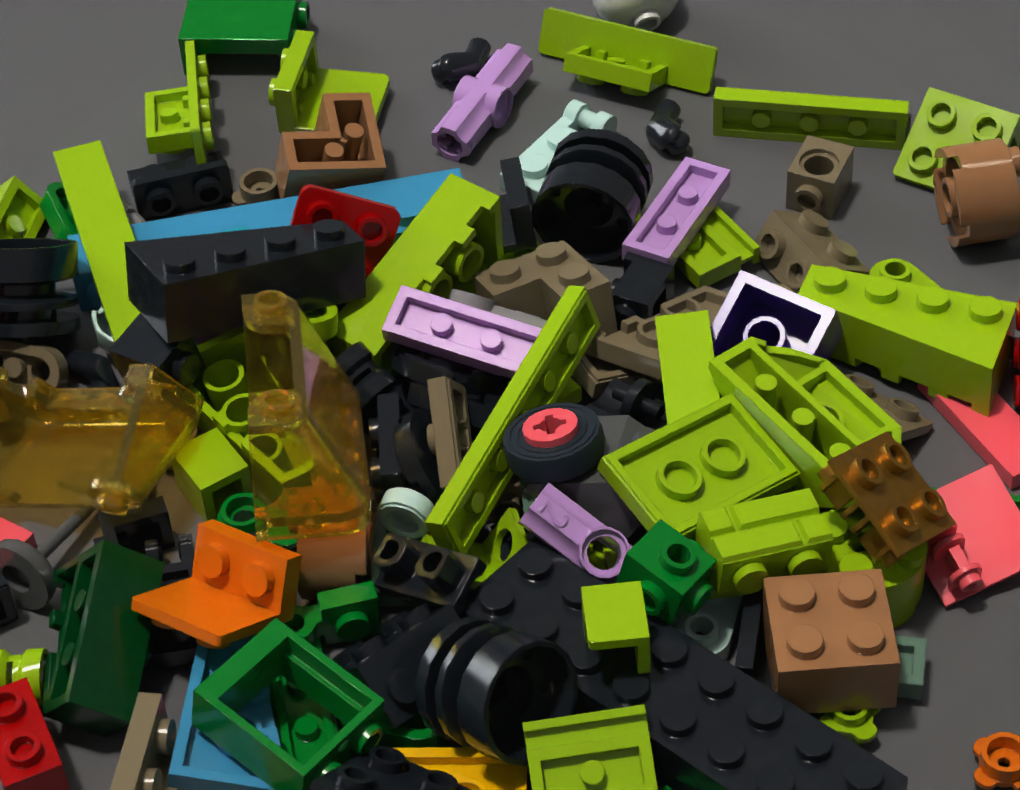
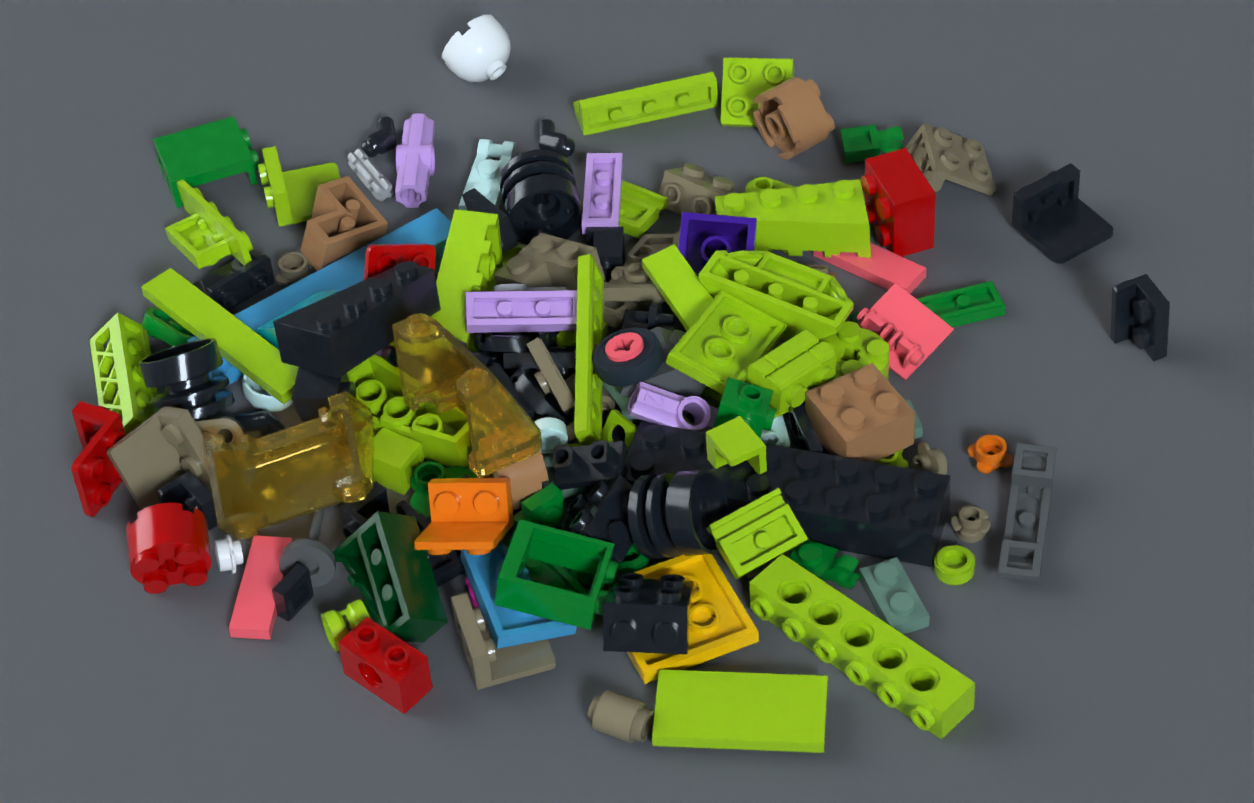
camera: 25 degrees left, 0 degrees up
(421, 102) = (370, 175): none -> light grey axle
(625, 54) = (494, 97): lime bracket -> none
(819, 176) = (678, 140): dark tan brick -> none
(891, 496) = (871, 323): pearl gold hinge -> none
(904, 744) = (929, 459): none -> dark tan plate

